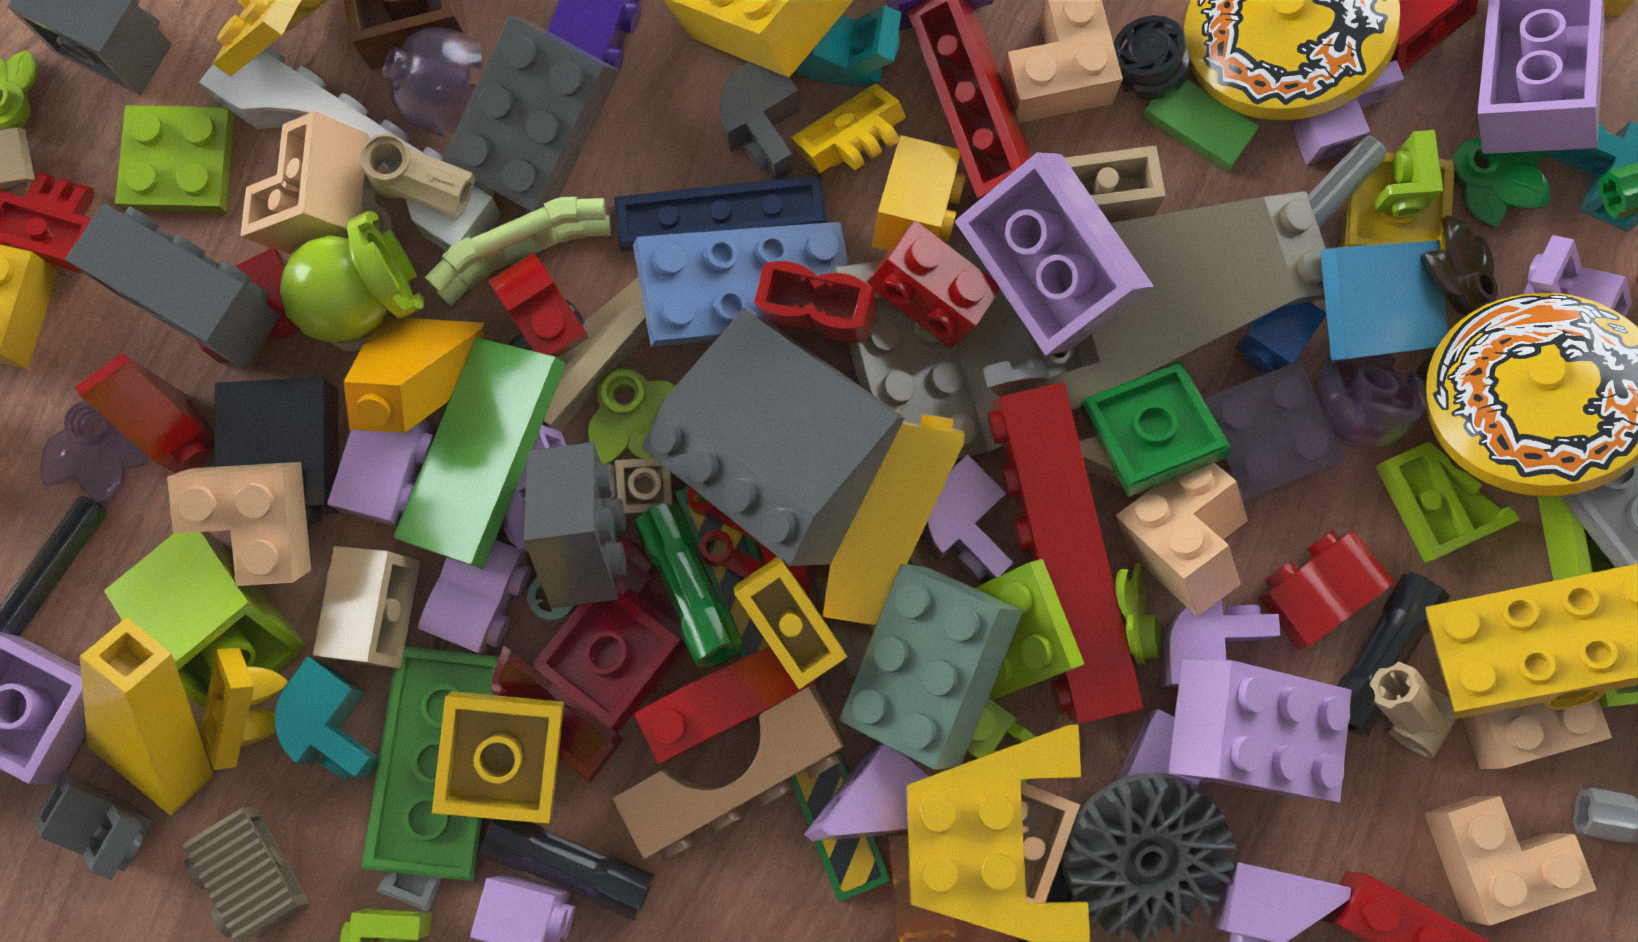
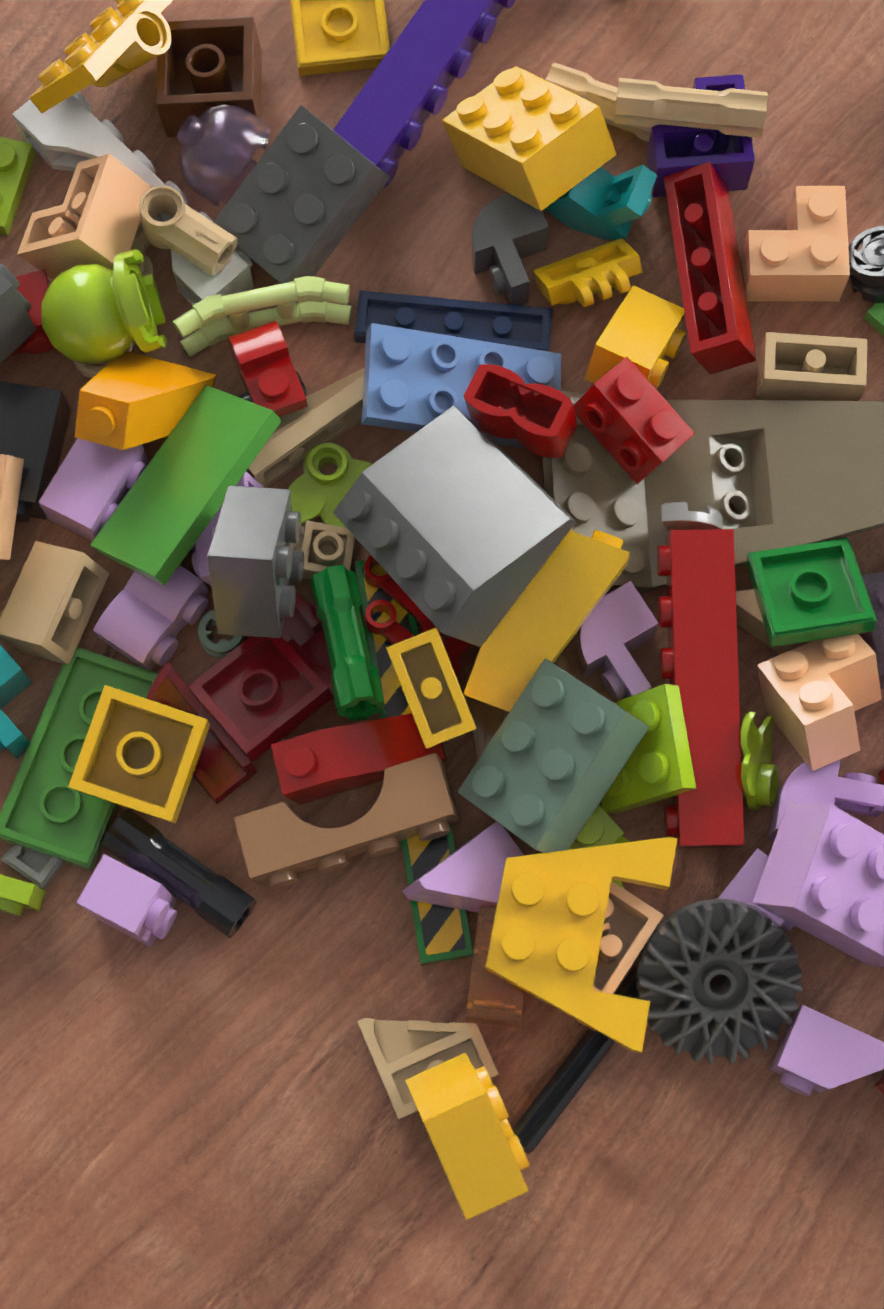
camera: 15 degrees right, 5 degrees down
(1053, 253) = (748, 412): lavender brick -> none

